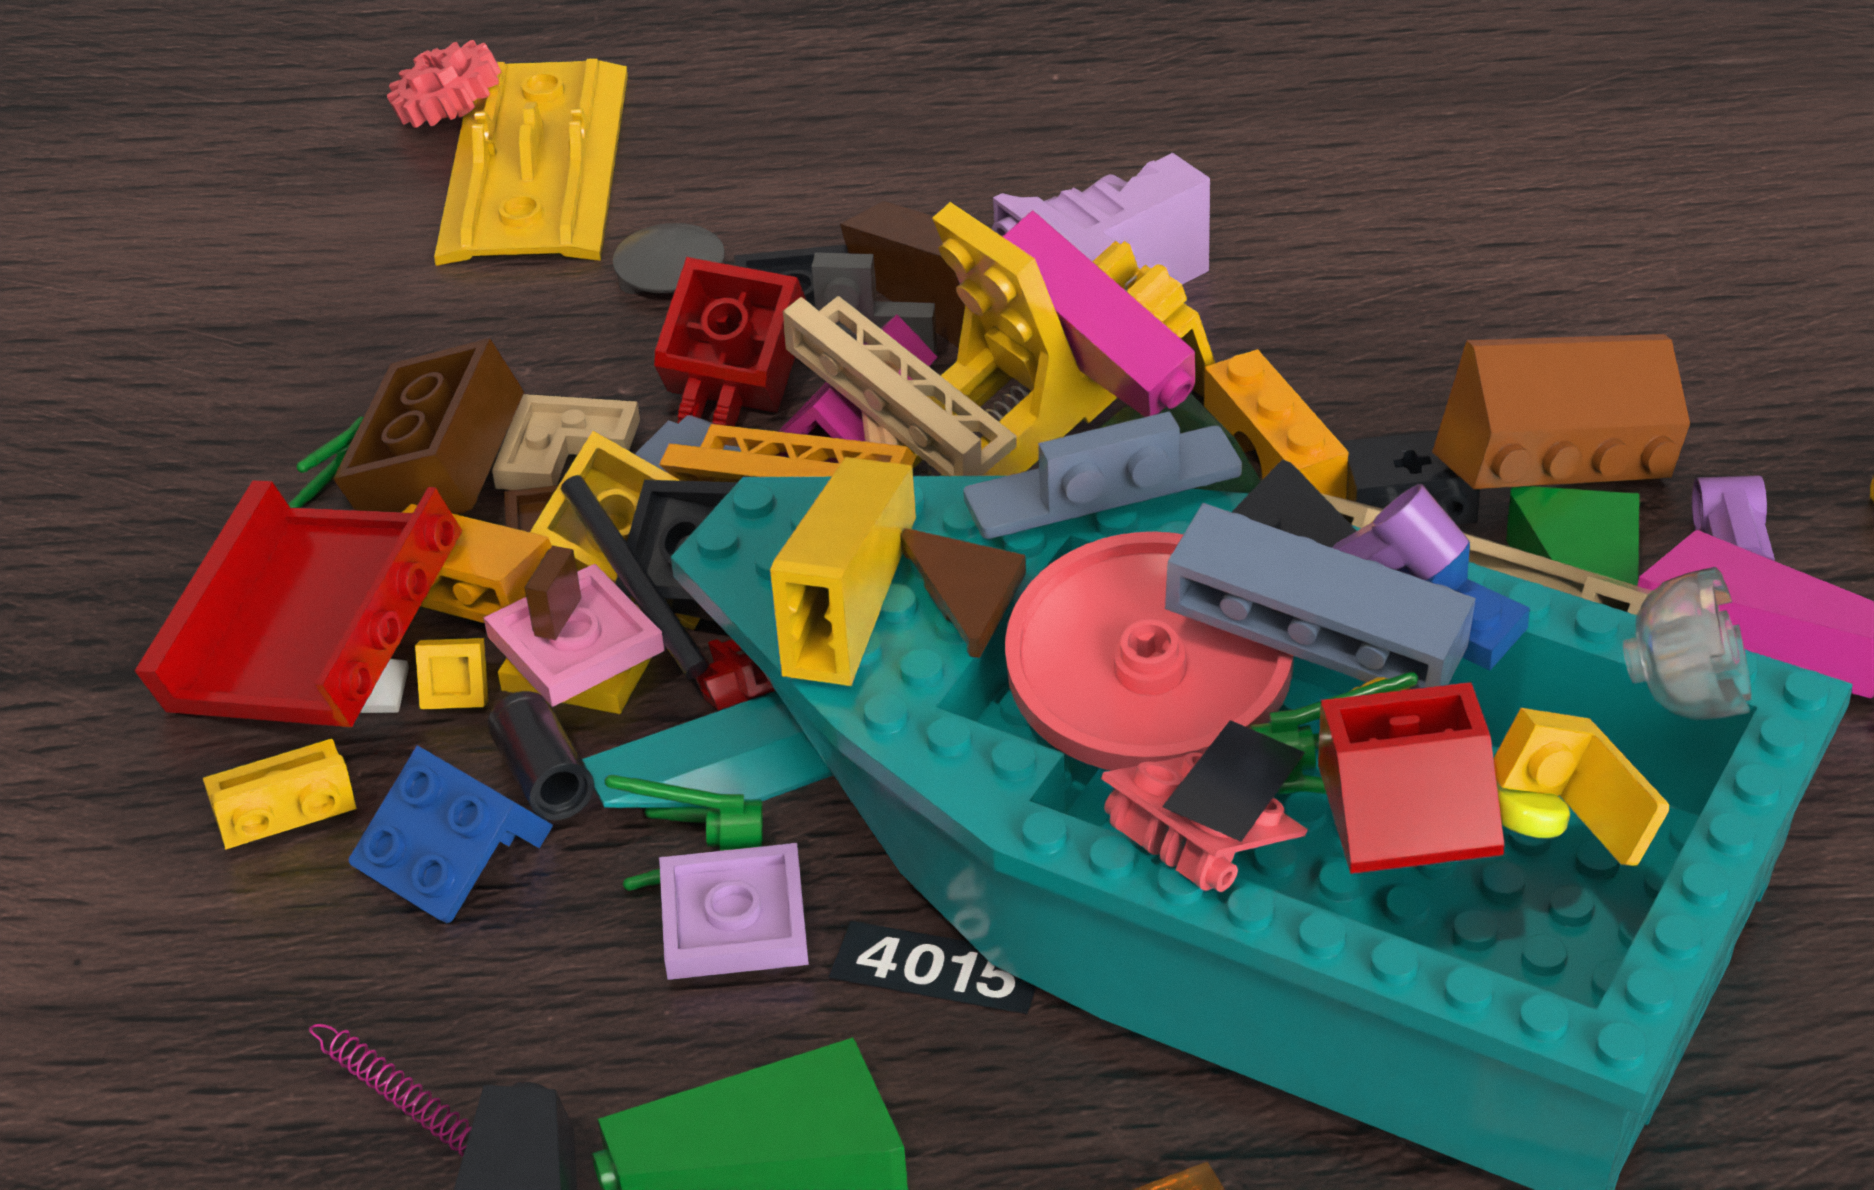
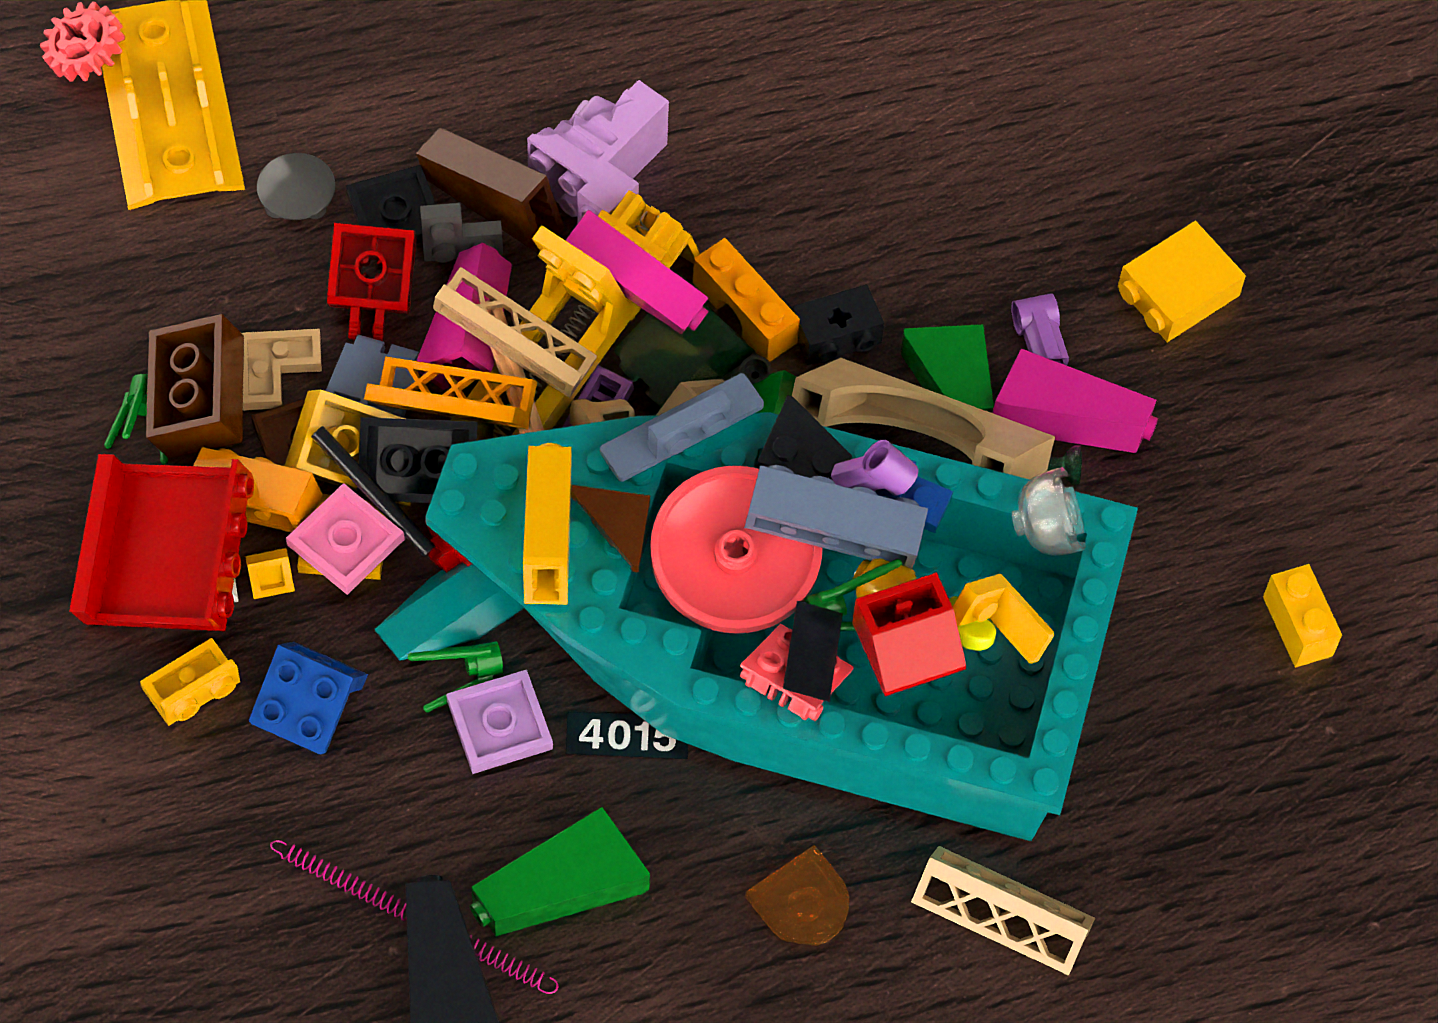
camera: 20 degrees left, 20 degrees up
(540, 755) = (348, 629): black pin -> none
(553, 592) = (331, 520): reddish brown tile -> none
(1564, 411) = (931, 275): dark orange slope -> none

